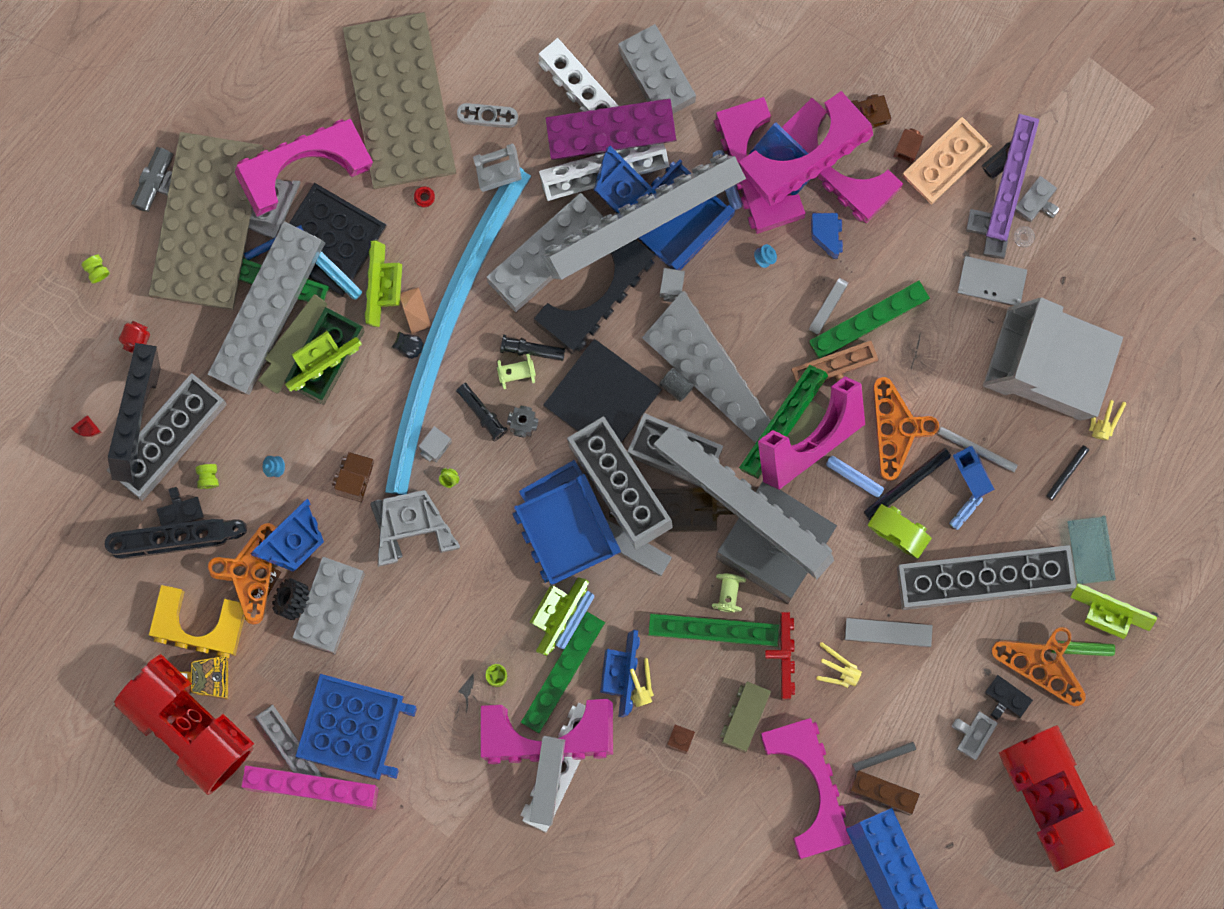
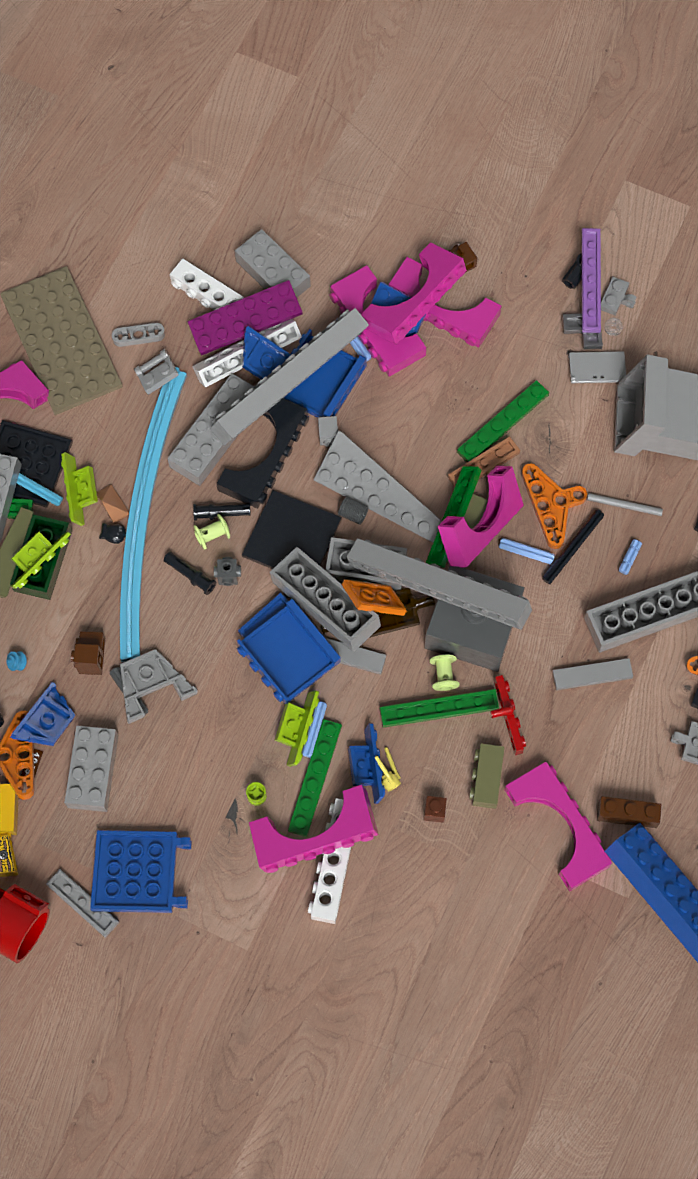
camera: 10 degrees left, 10 degrees down
(290, 599) = (55, 770): black tyre -> none
(309, 786) = (149, 928): dark pink arch -> none
(424, 190) = (96, 406): red plate -> none
(434, 445) = (155, 609): light grey brick -> none
(449, 477) = (174, 634): lime plate -> none
(547, 780) = (325, 872): light grey tile -> none
(672, 495) = (374, 597): none -> orange tile
(765, 256) = (401, 390): dark azure wheel -> none
(825, 232) = (447, 360): blue slope -> none
(828, 306) = (465, 418): light grey beam -> none
(849, 674) = (569, 716): light yellow plant -> none
(884, 756) = (619, 781): dark grey bar -> none
(899, 531) = (578, 585): lime brick -> none
(908, 145) = (497, 277): copper brick -> none
(946, 160) = (532, 282): light nougat plate -> none
(973, 472) = (627, 521): blue slope -> none

